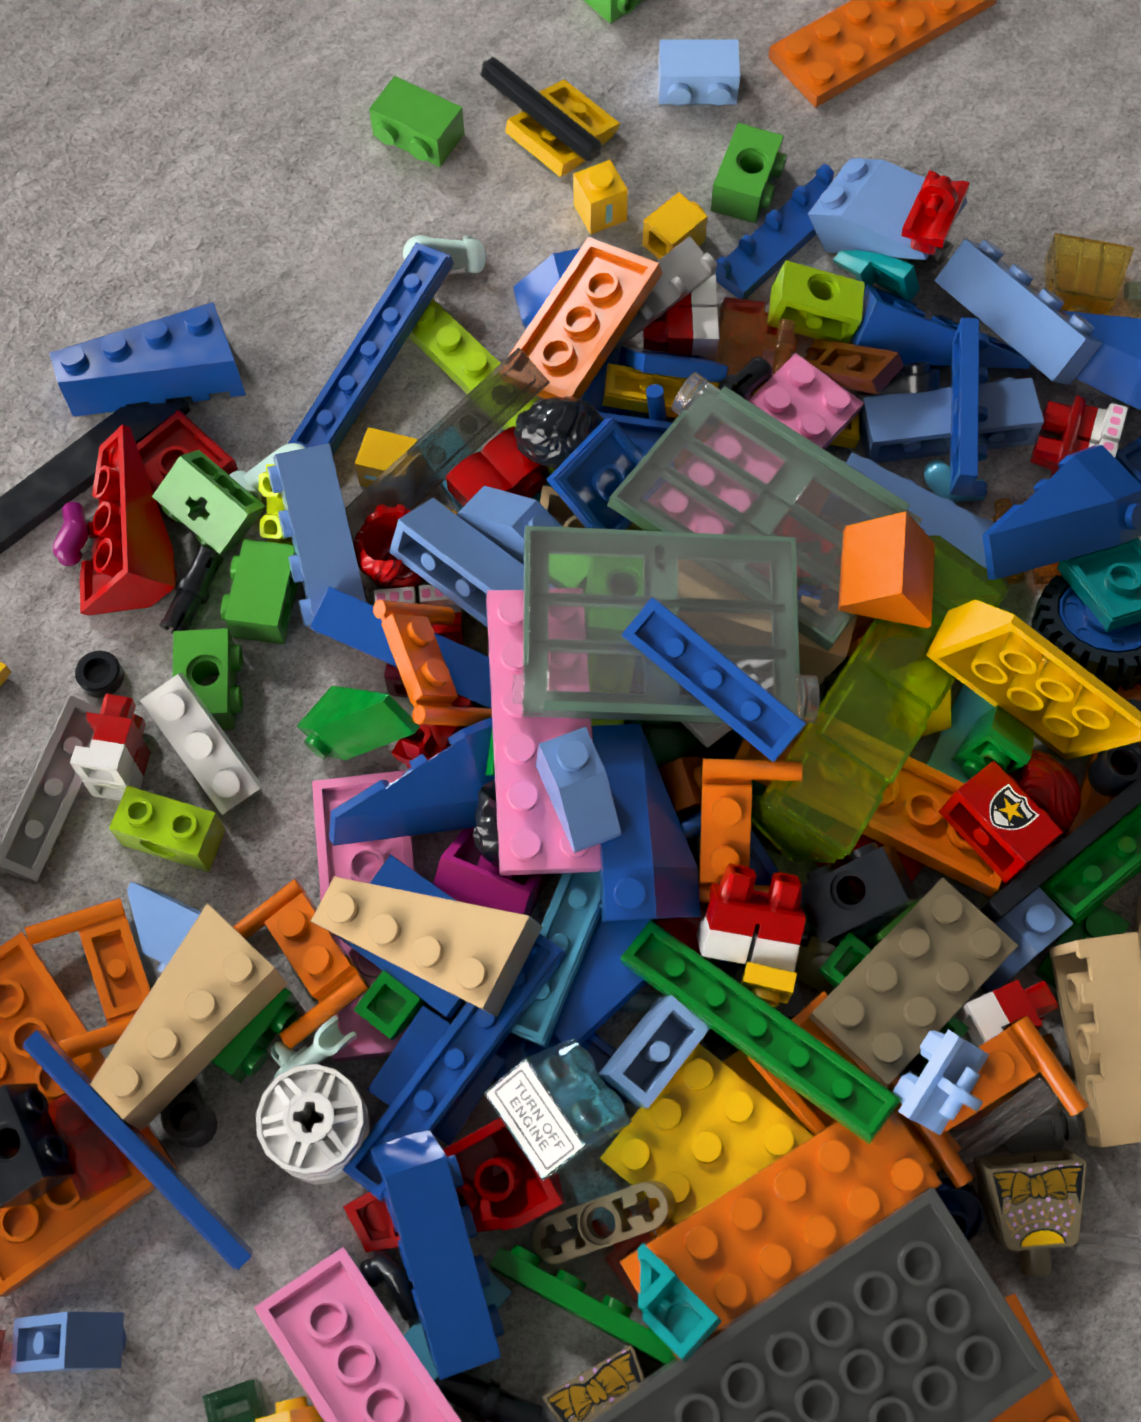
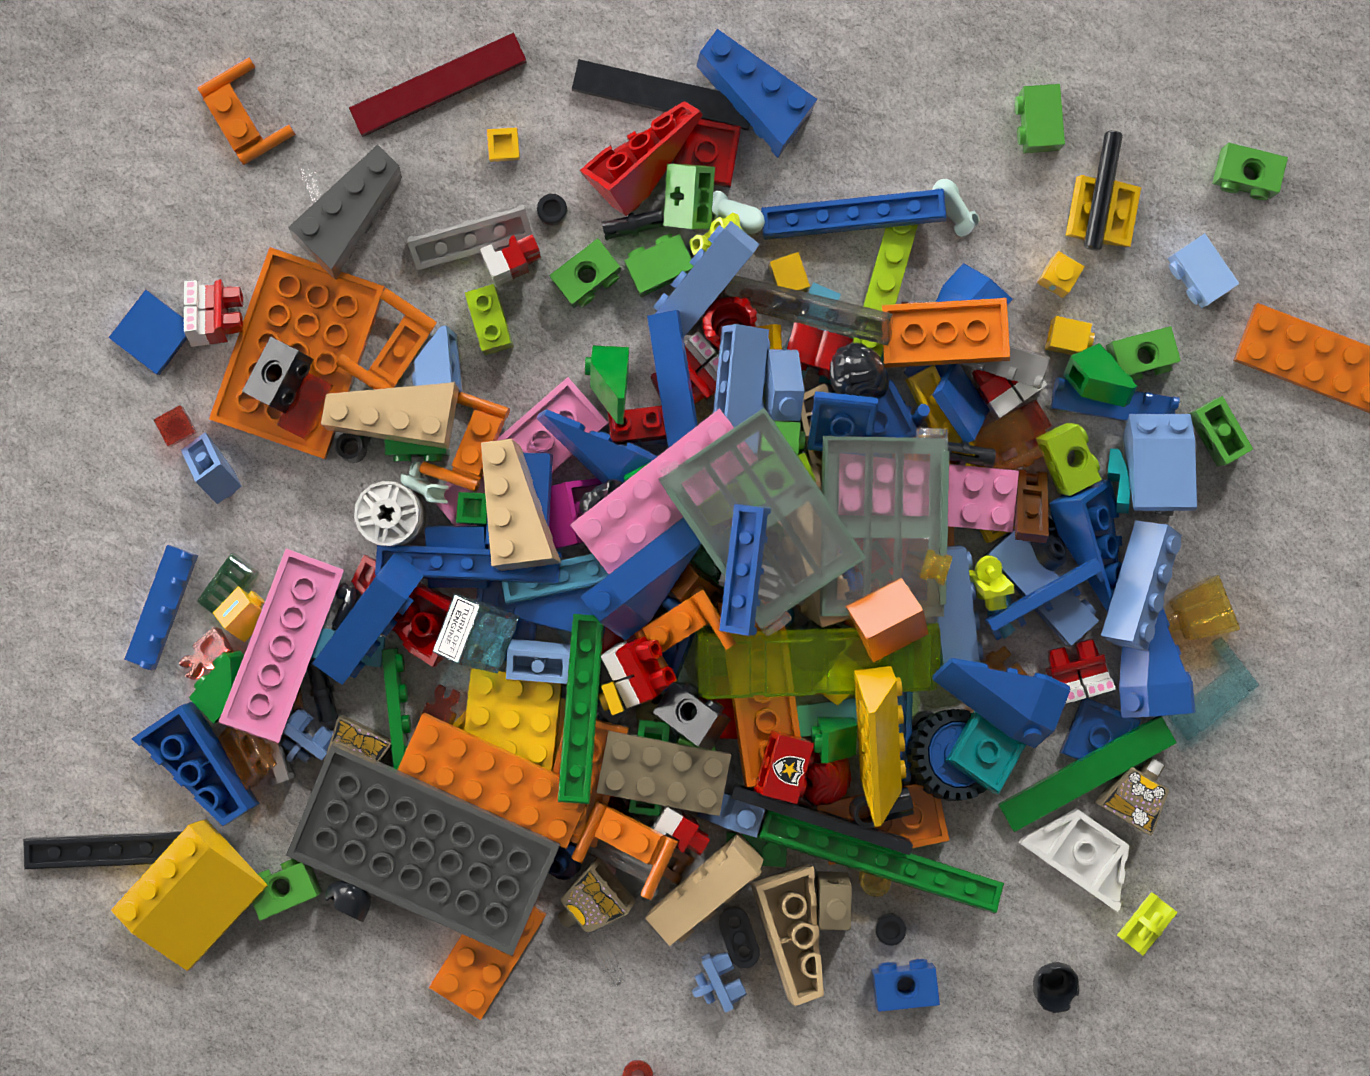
camera: 55 degrees right, 20 degrees up
(72, 535) = (621, 129): magenta arm -> none
(139, 1150) = (316, 438): blue tile -> none
(201, 743) = (545, 302): white plate -> none
(422, 663) = (662, 396): orange plate -> none
(567, 1220) = (453, 693): dark tan beam -> none
(578, 789) = (634, 539): medium blue slope -> none
(672, 1307) = (416, 753): teal slope -> none
(746, 213) = (1099, 377): none -> green slope
(858, 477) = (935, 567): none -> clear yellow wheel
(892, 138) = (1220, 431): none -> bright green brick
(912, 457) = (991, 583): none -> neon yellow hips
(934, 212) = (1162, 498): red hips -> none
(943, 1083) = (611, 822): light blue hips -> none

